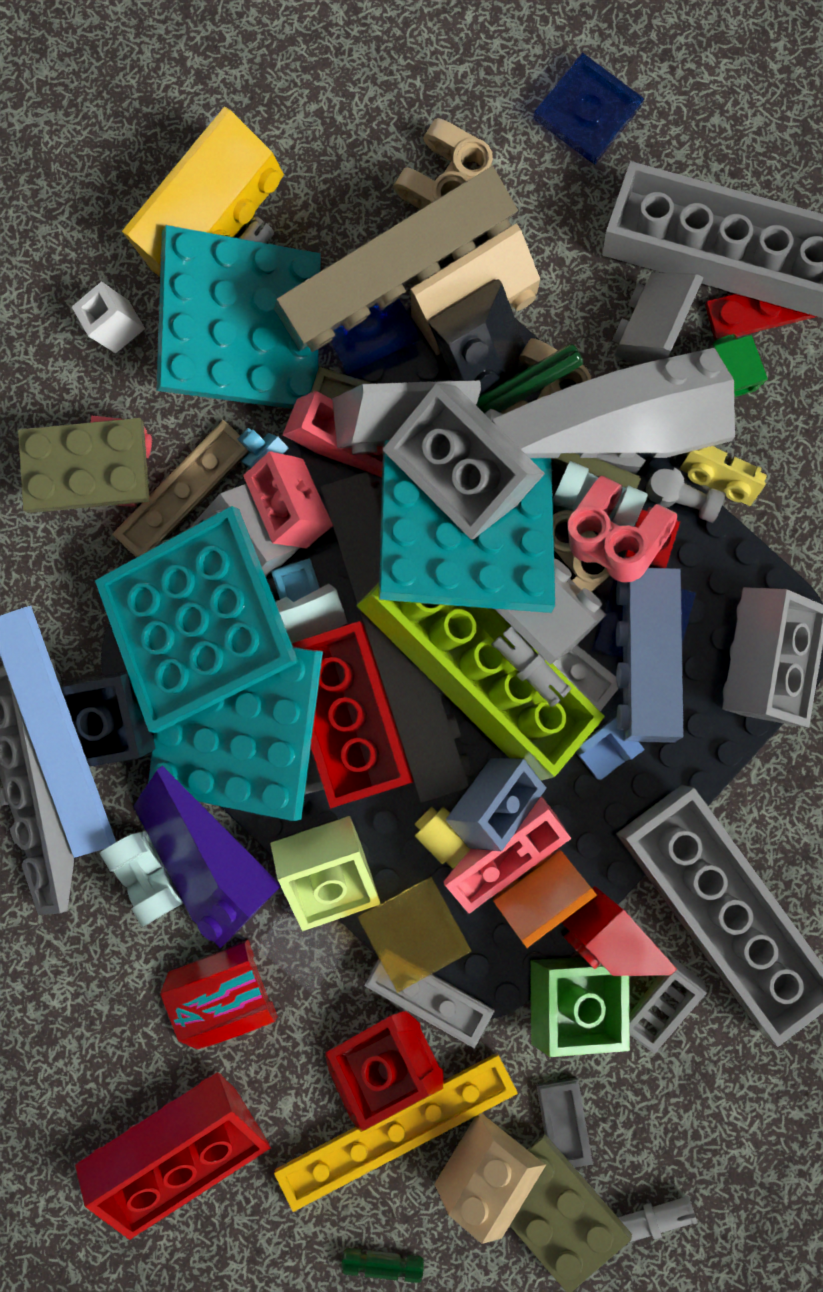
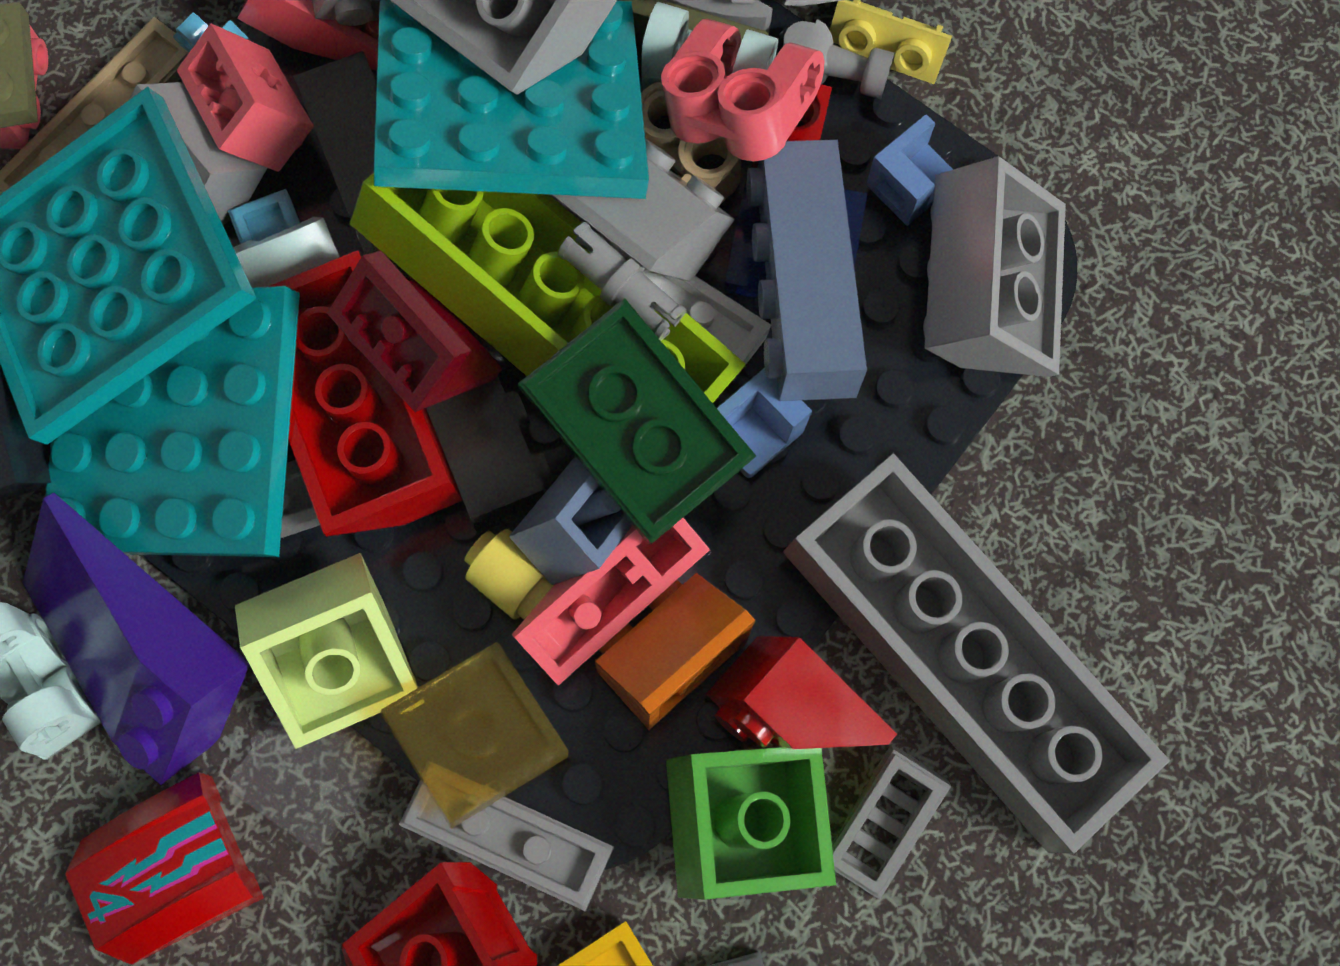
camera: 15 degrees left, 10 degrees down
(395, 692) = (409, 335): none -> dark red bracket
(533, 760) = (636, 421): none -> dark green tile
(726, 581) = (906, 172): none -> medium blue panel

